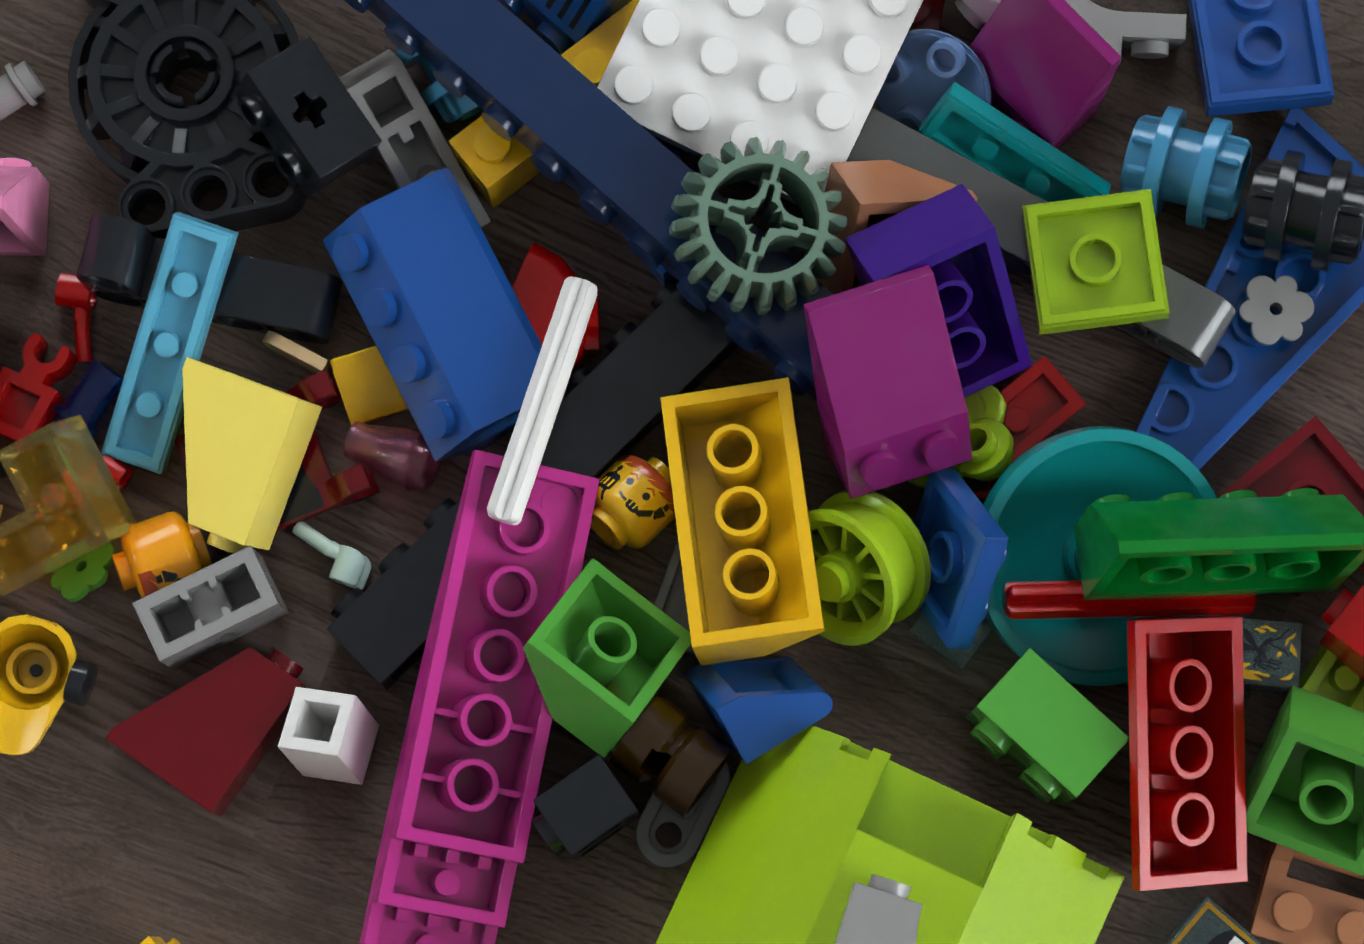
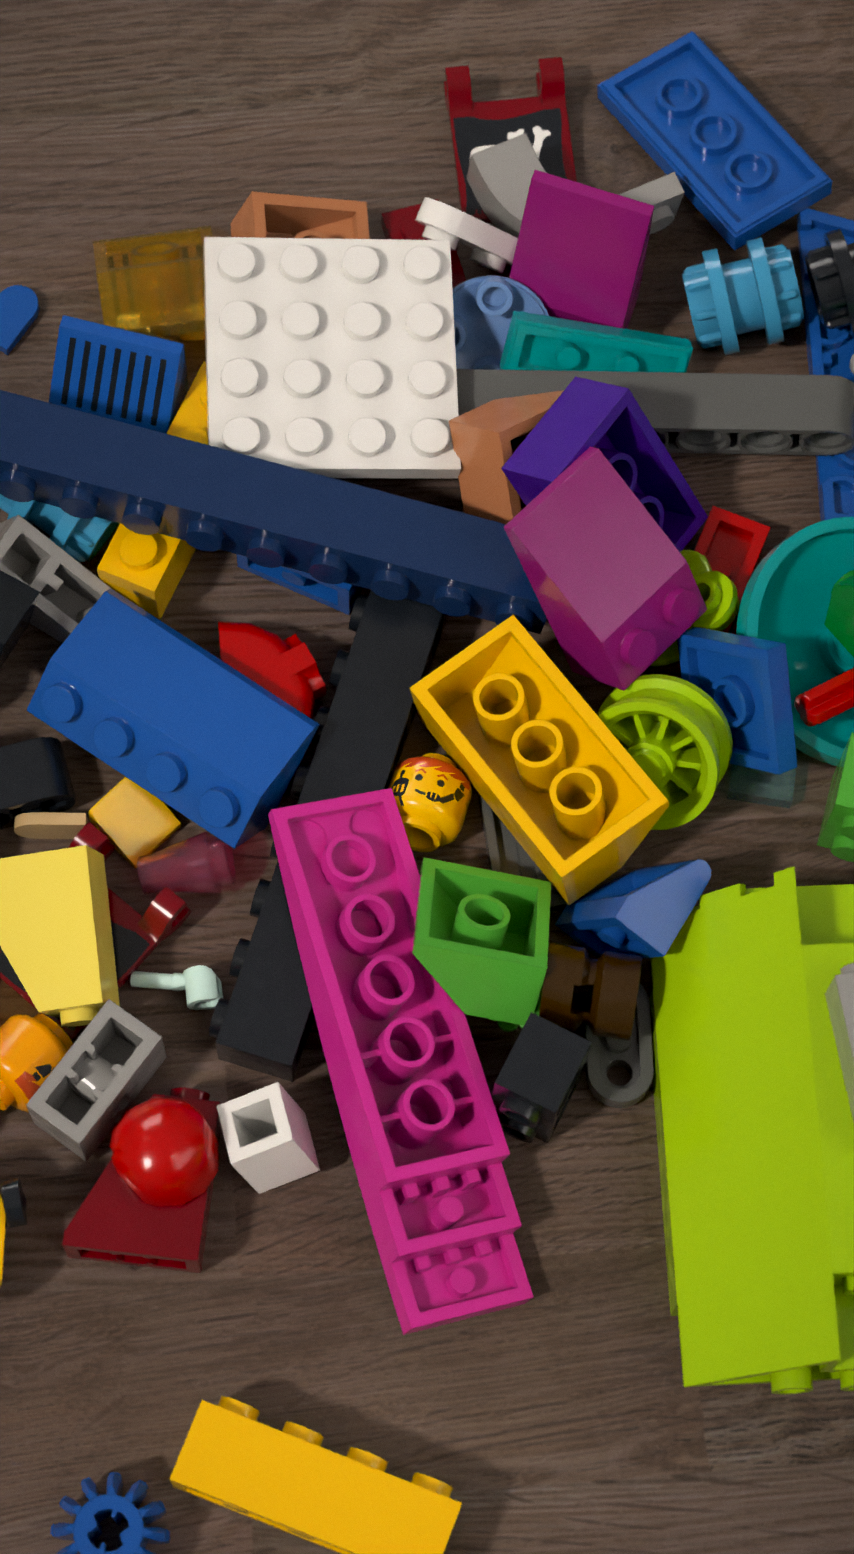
camera: 35 degrees left, 10 degrees down
(229, 704) = (165, 1151): none -> red hair
(542, 401) = (308, 739): white axle -> none
(730, 220) = (401, 518): sand green gear -> none
(1095, 262) = (717, 398): lime tile -> none

